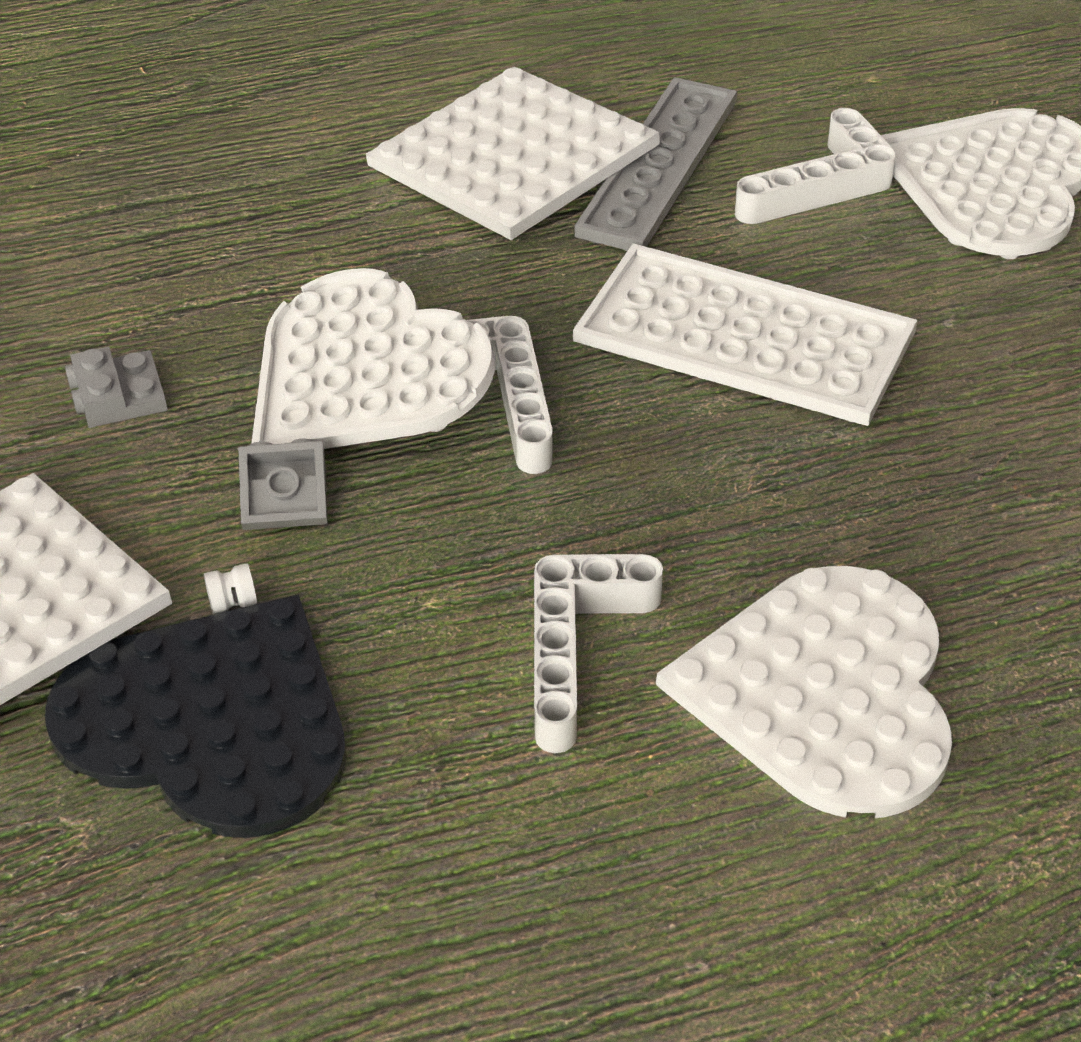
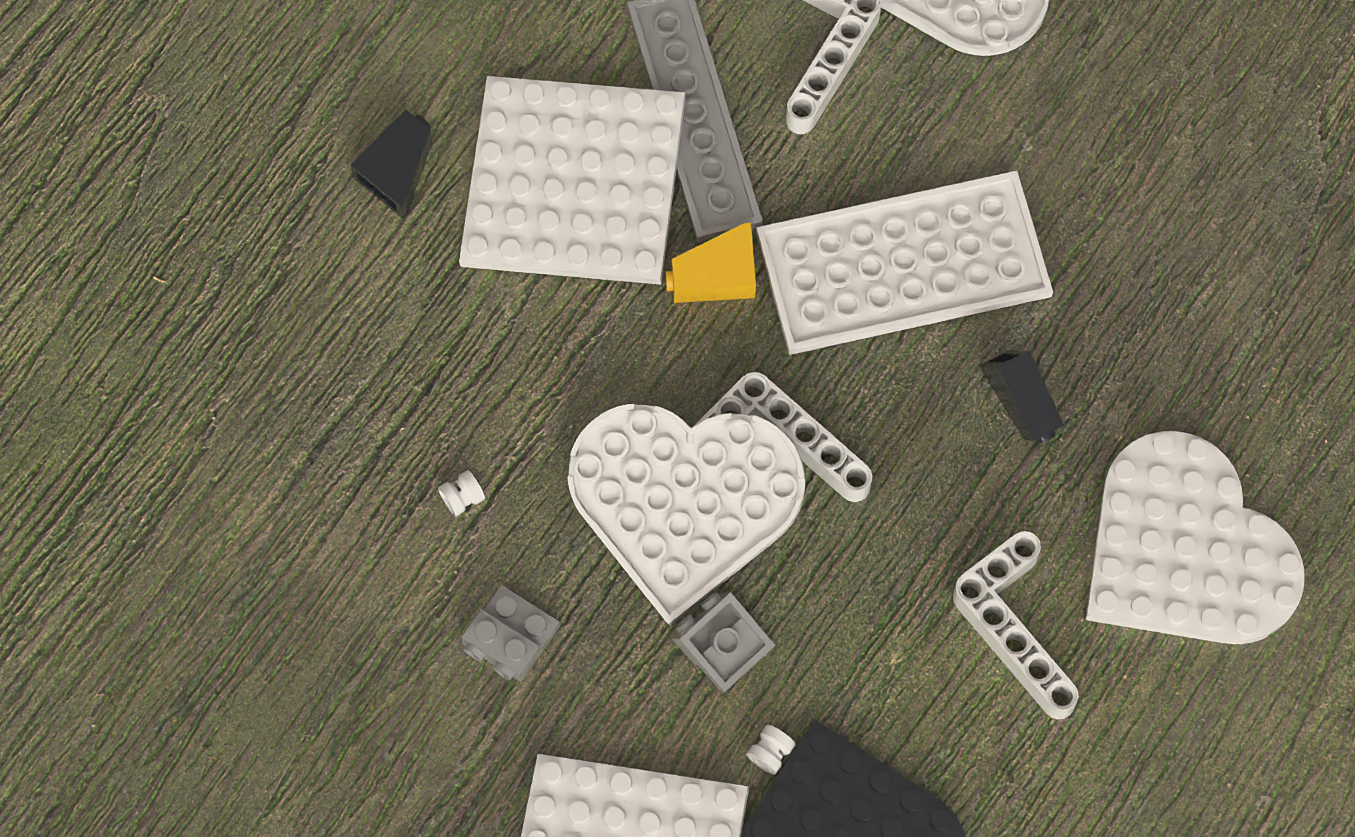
camera: 40 degrees left, 25 degrees up
(193, 277) = (461, 493): none -> white wheel
(389, 80) = (395, 162): none -> black slope
(569, 252) = (715, 269): none -> yellow slope
(762, 463) = (1023, 394): none -> black slope

